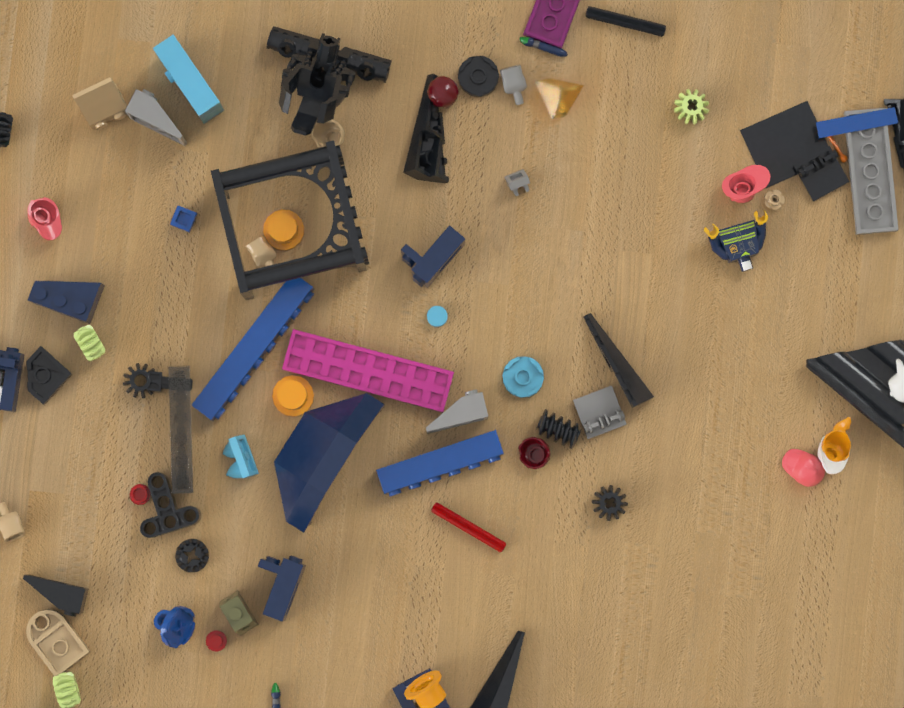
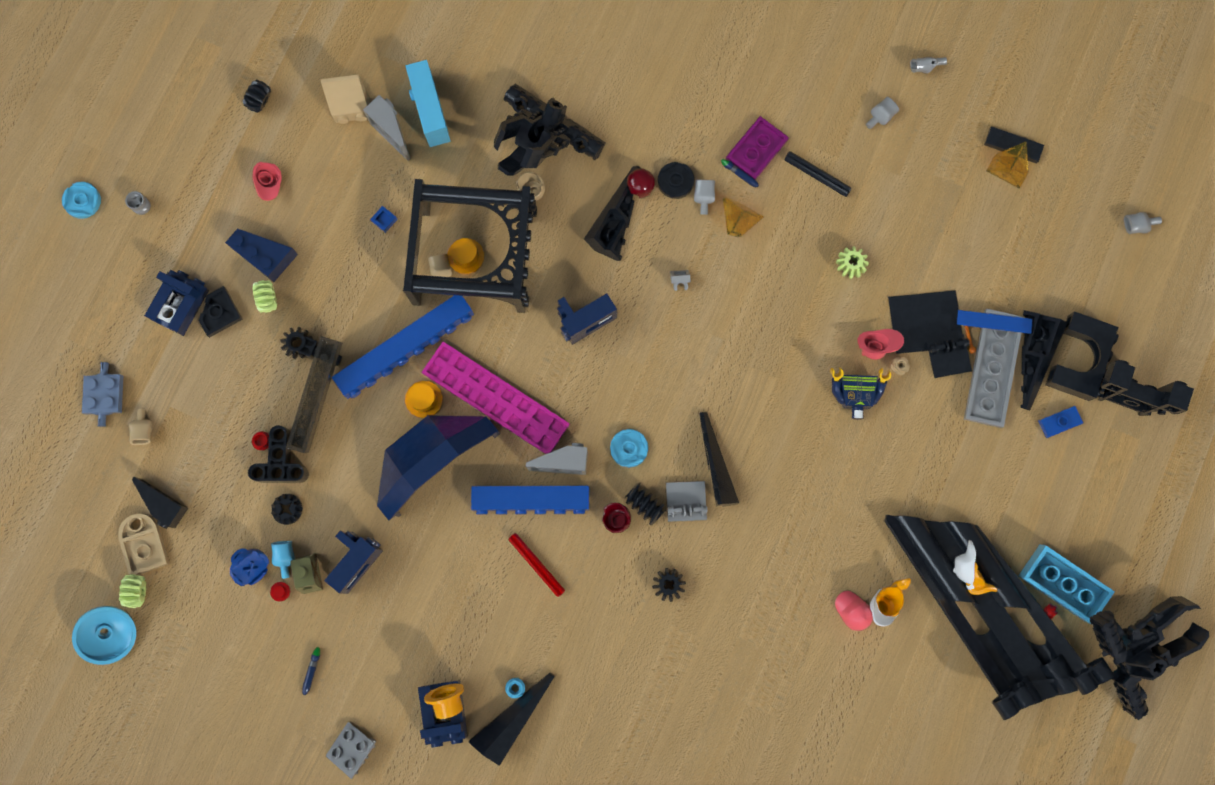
camera: 20 degrees right, 5 degrees down
(206, 604) = (282, 556): none -> medium azure piece
(240, 450) = (361, 442): medium azure tile -> none
(437, 316) = (571, 371): medium azure tile -> none
(489, 664) = (508, 688): none -> medium azure plate

